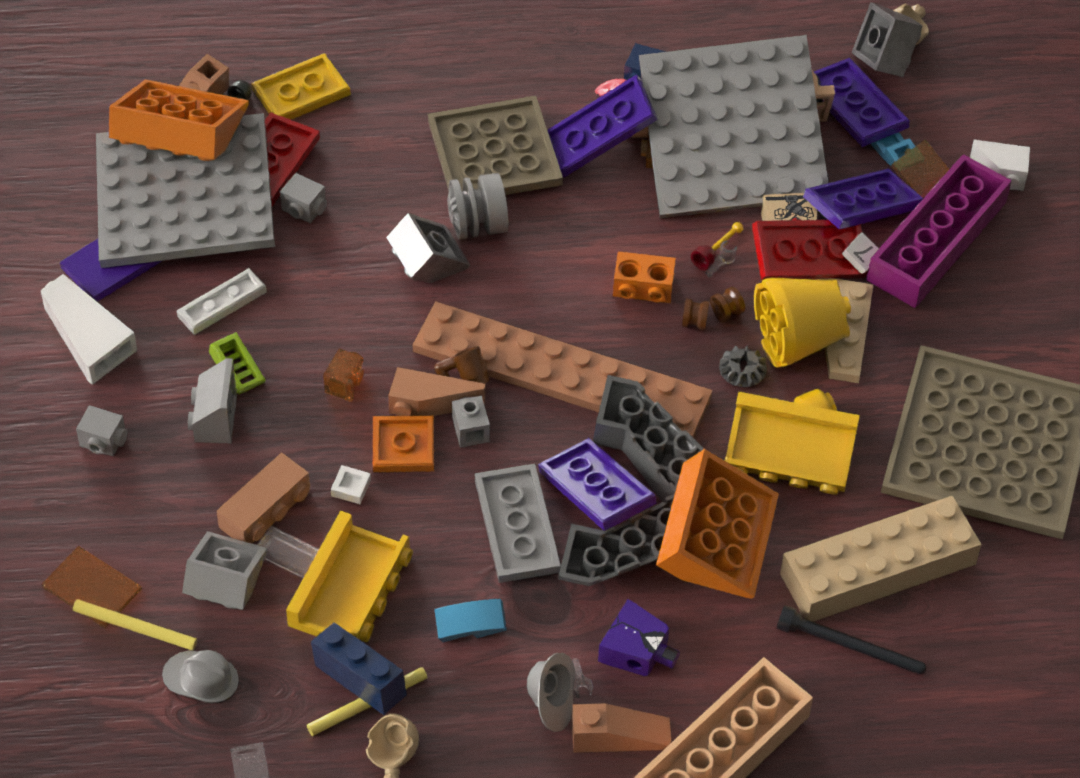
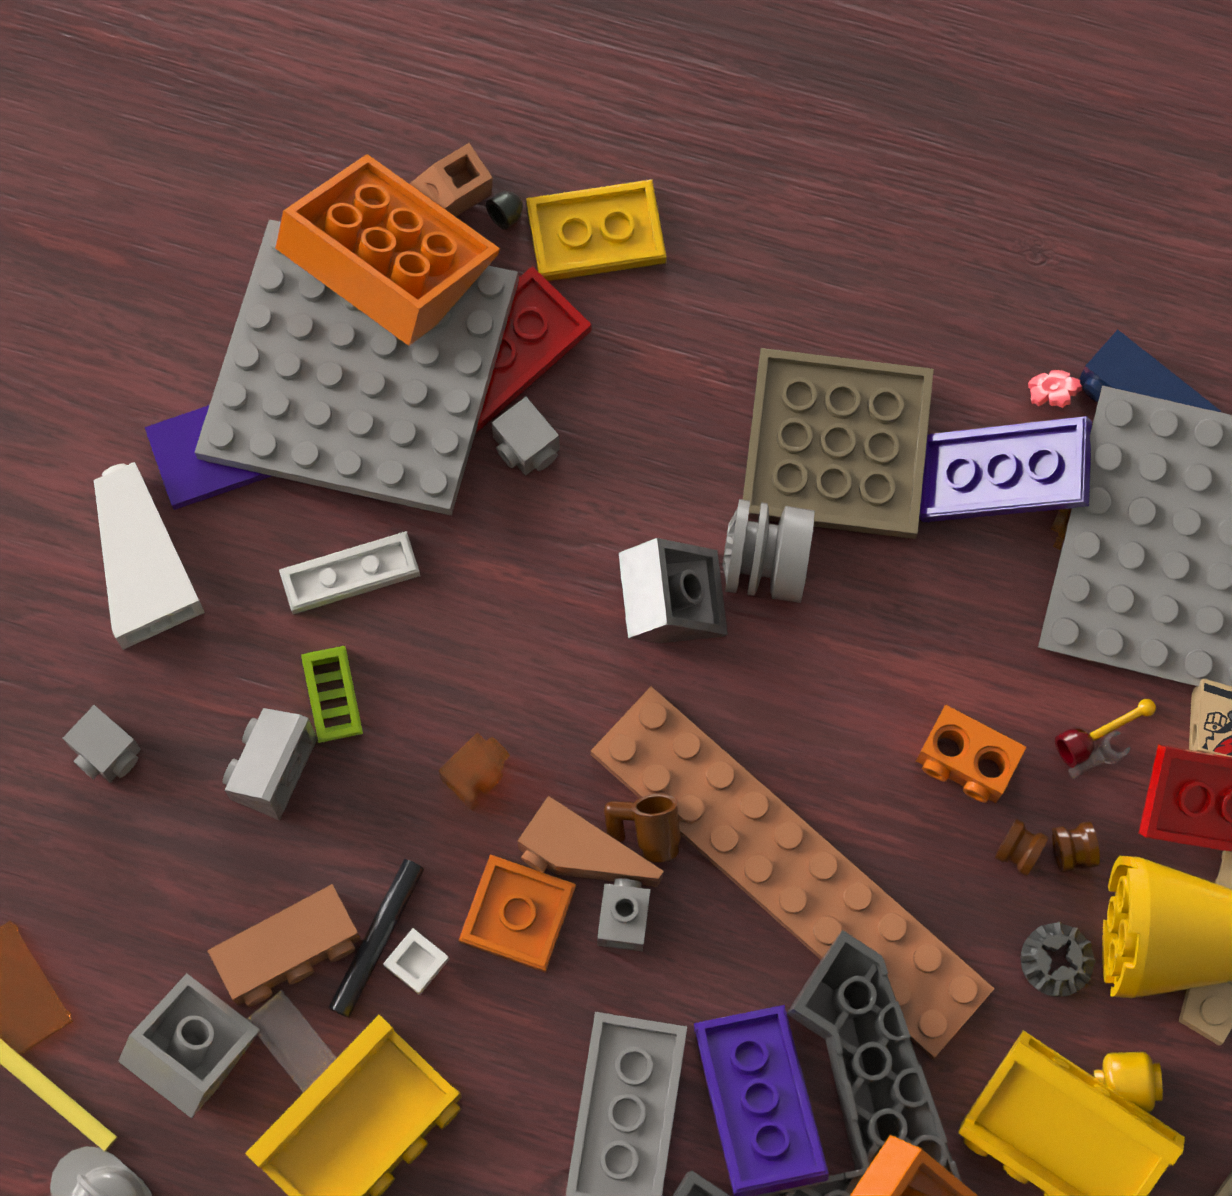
camera: 20 degrees right, 20 degrees up
(320, 482) = (376, 938): none -> black piece

